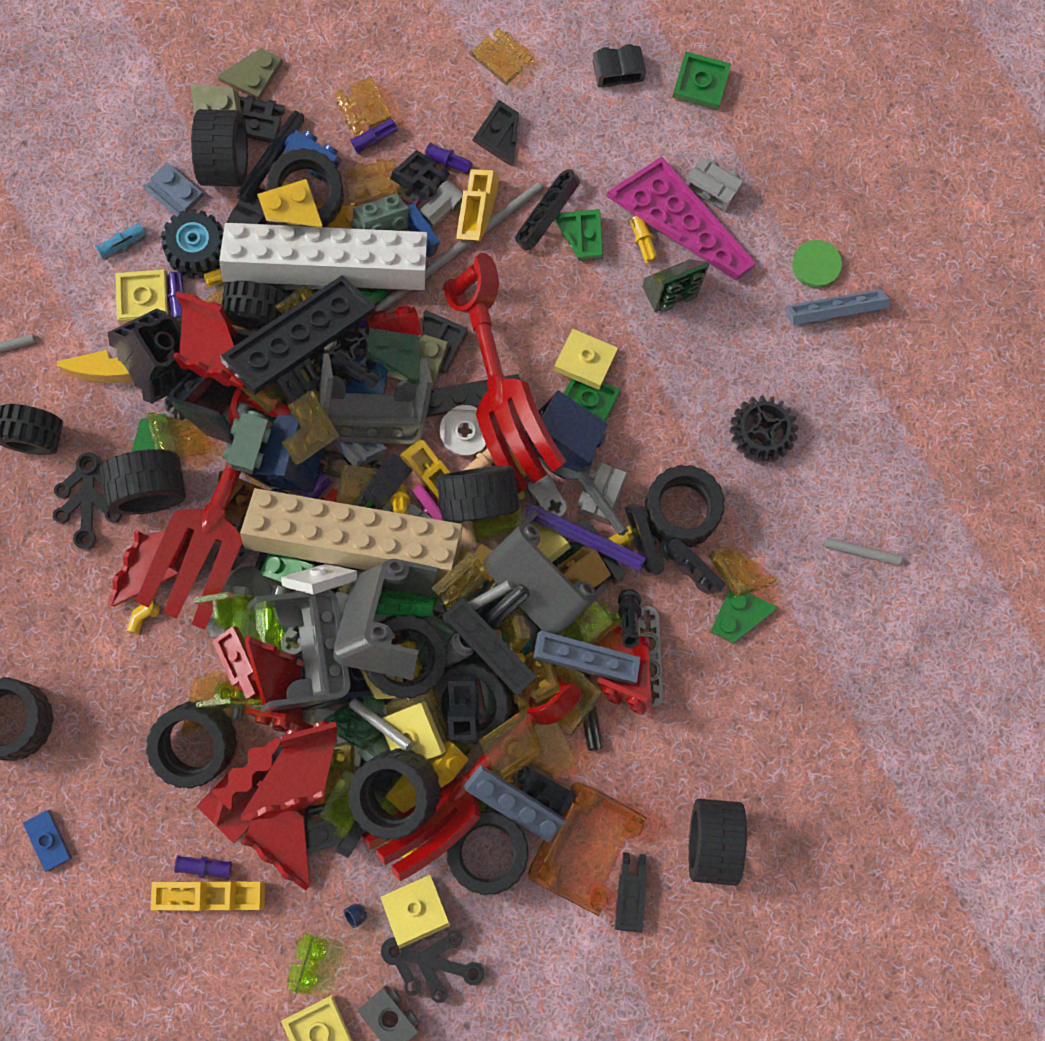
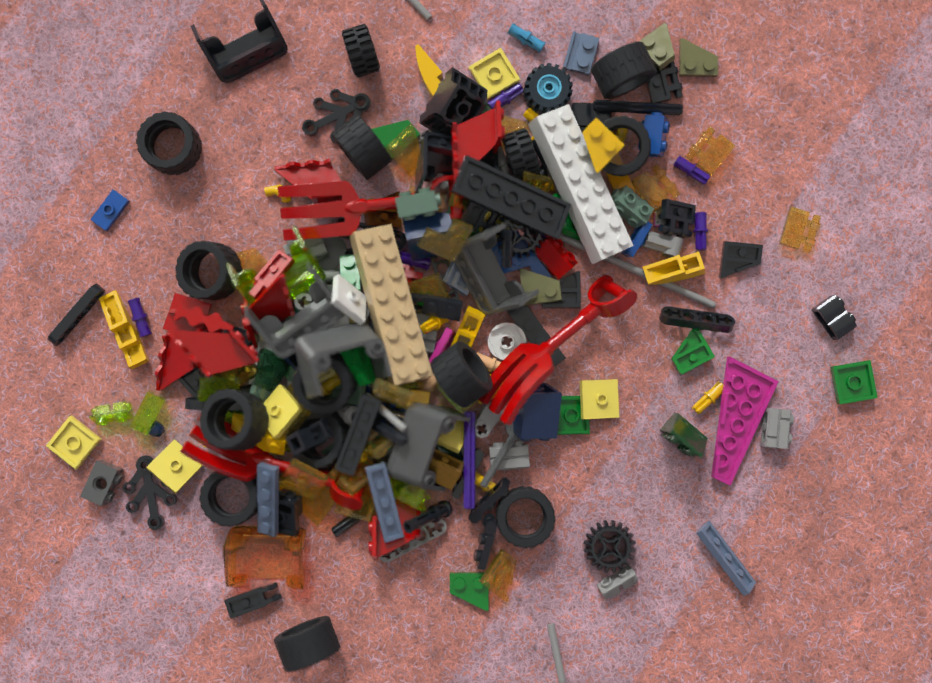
camera: 70 degrees right, 10 degrees up
(156, 949) = (76, 314): none -> black beam
(329, 913) = (147, 412): none -> clear neon green hinge
(381, 724) = (275, 388): light grey bar -> none
(395, 351) = (535, 268): clear green wing -> none
(808, 431) = (610, 585): none -> light grey hinge
(816, 263) = (752, 528): bright green tile -> none

